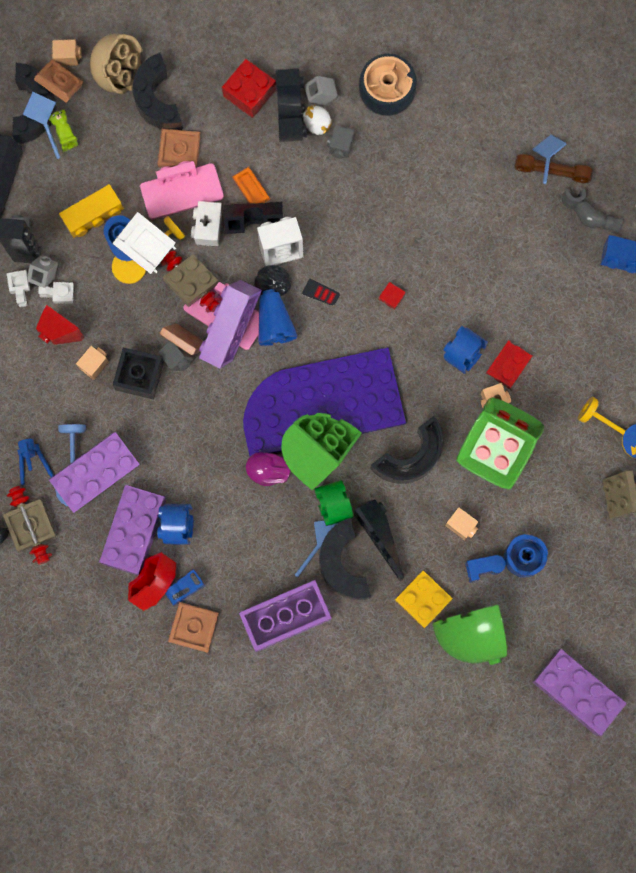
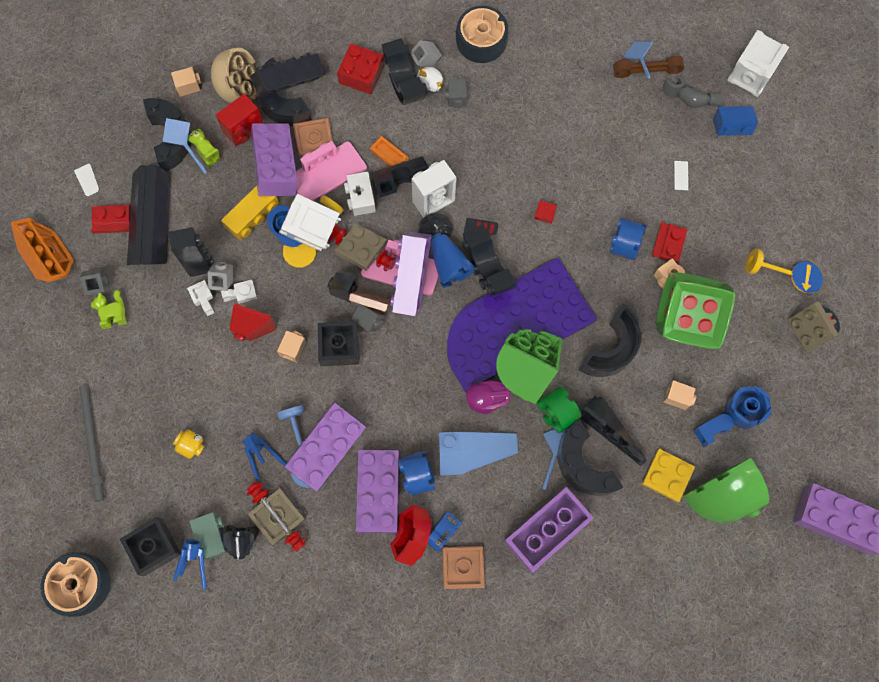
camera: 20 degrees left, 5 degrees down
(58, 80) = (187, 105): nougat tile -> none
(107, 112) = (238, 118): none -> red brick
(129, 164) = (273, 160): none -> medium lavender brick
(160, 315) = (343, 285): none -> black slope
(169, 77) = (288, 74): none -> black brick
(232, 517) = (471, 450): none -> medium blue wedge
(311, 333) = (487, 265): none -> black brick
(548, 296) = (681, 175): none -> white sticker

